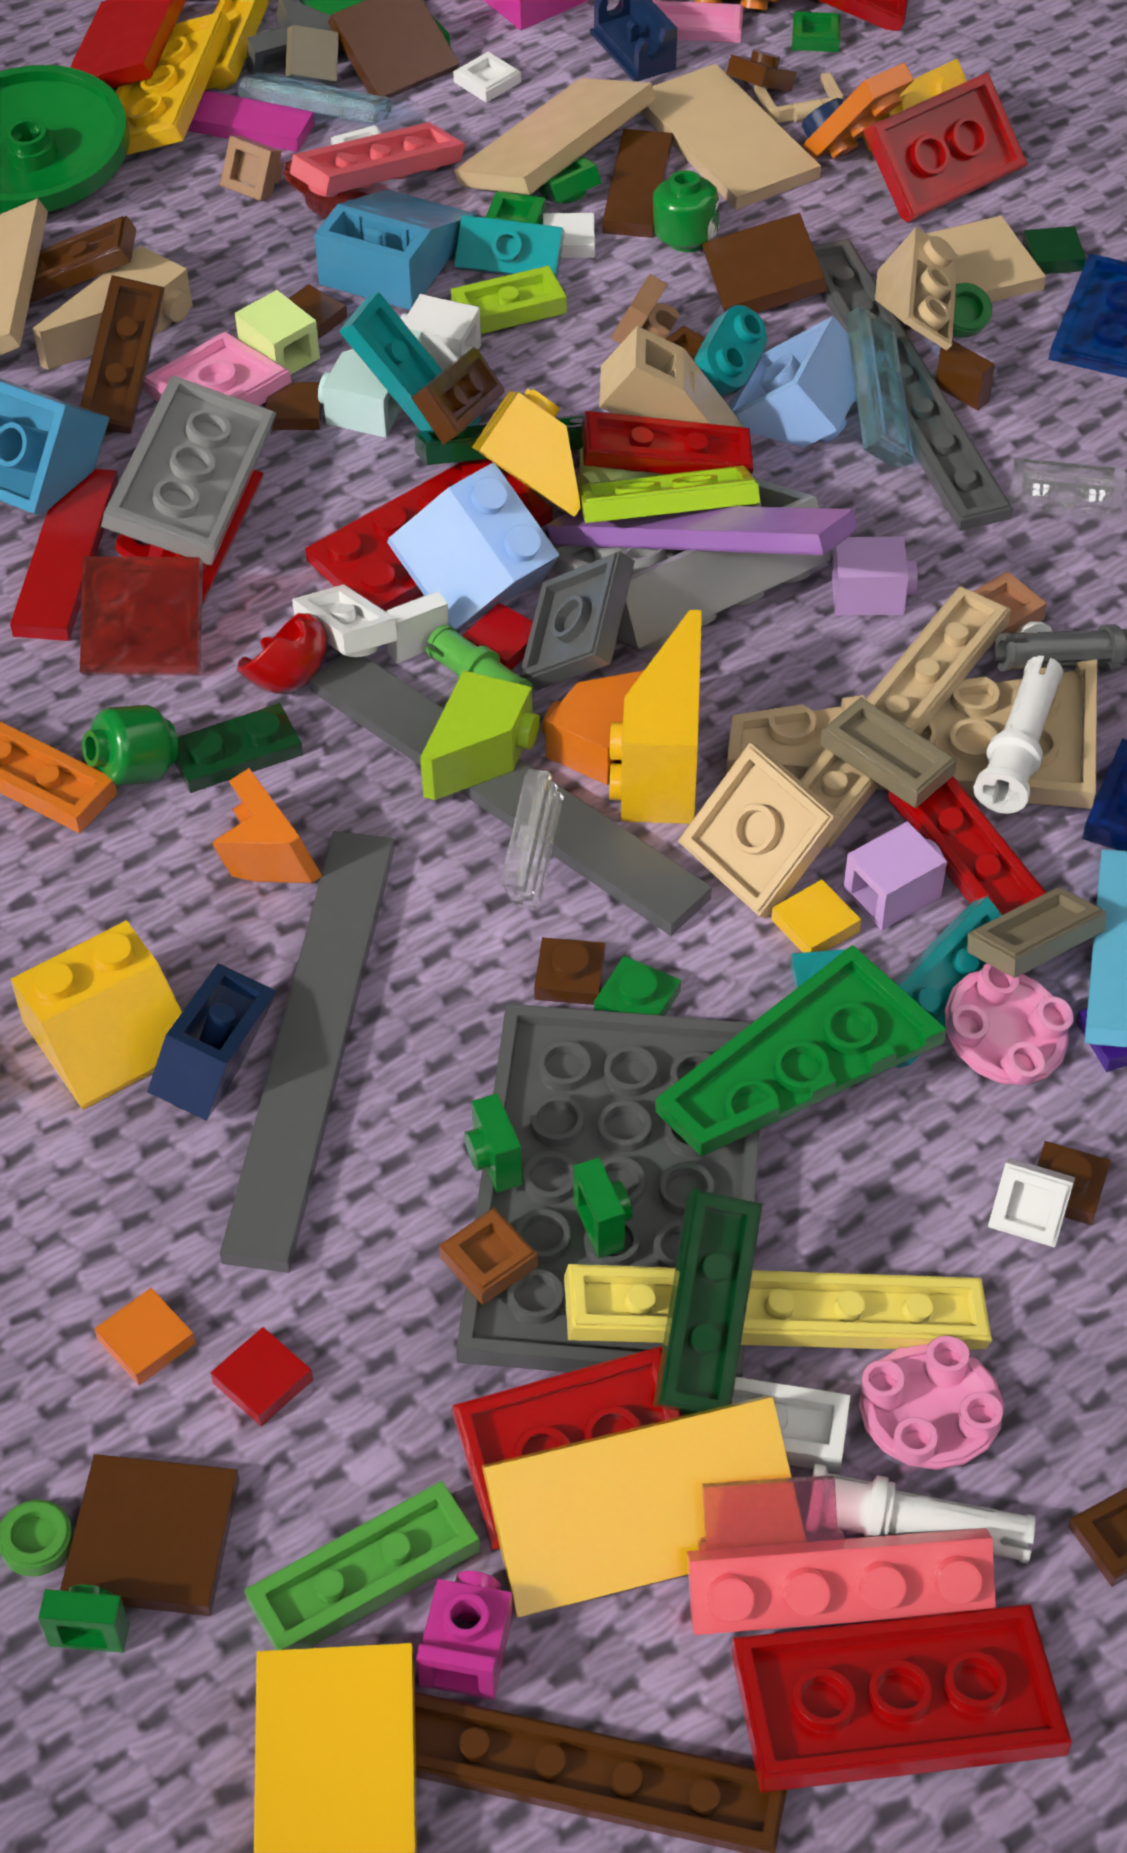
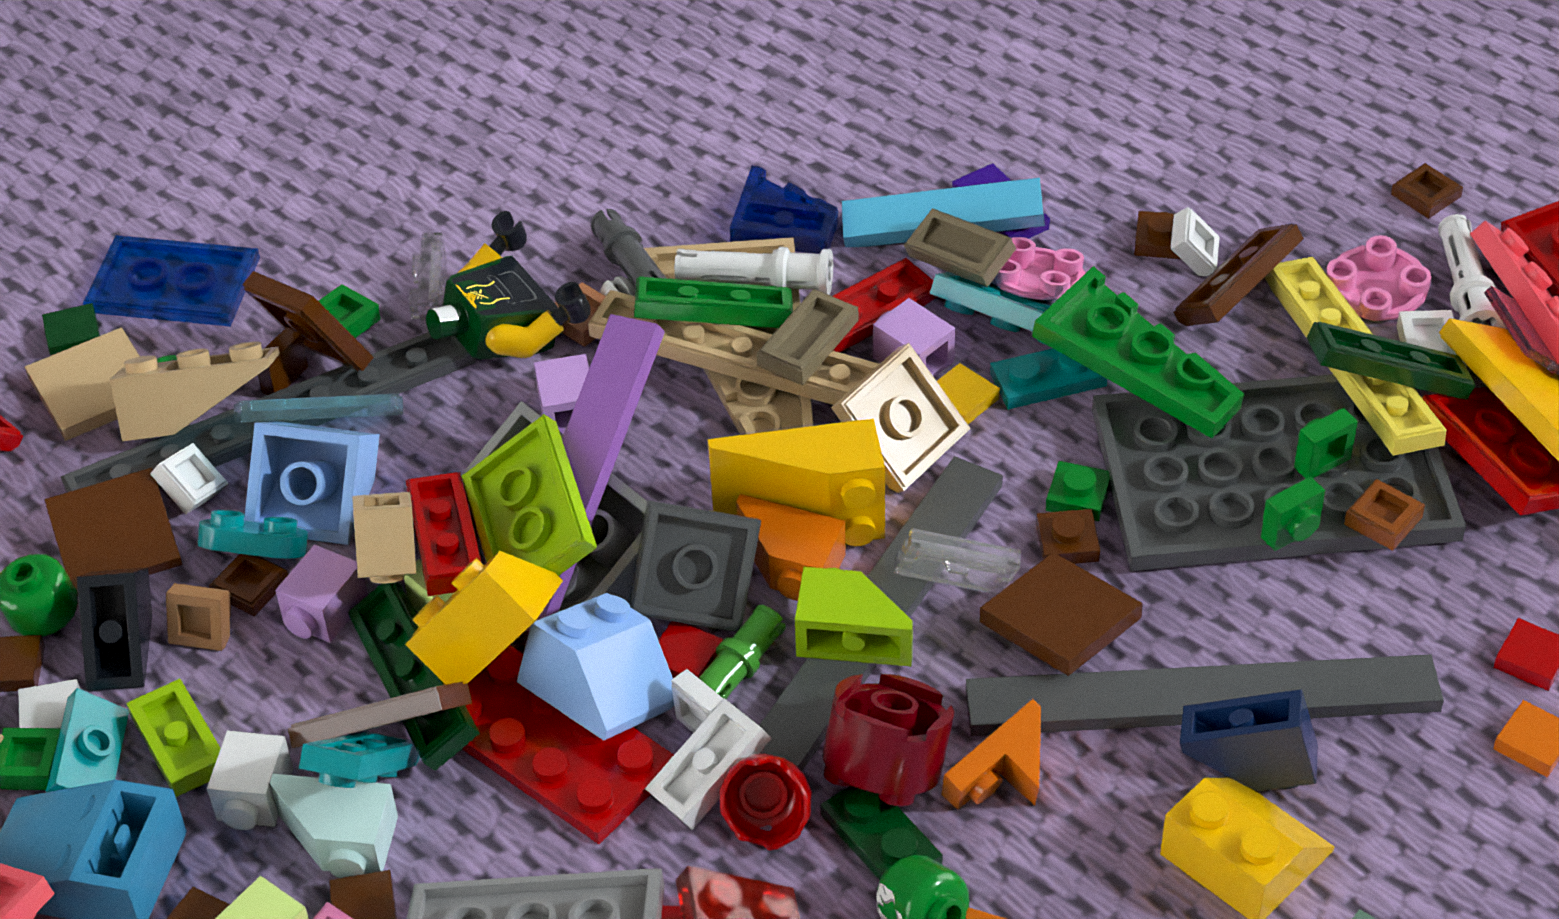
camera: 100 degrees left, 5 degrees down
(311, 734) = (887, 737): none -> dark red brick
(447, 926) = (1060, 613): none -> reddish brown tile
(654, 246) = (115, 627): none -> black slope
(814, 303) = (189, 478): none -> white tile
(965, 682) = (712, 302): none -> green tile
(965, 1239) = (1238, 275): none -> reddish brown tile
(987, 368) = (310, 318): none -> reddish brown tile
(1015, 524) = (499, 306): none -> torso
(1035, 426) = (351, 309): none -> green plate

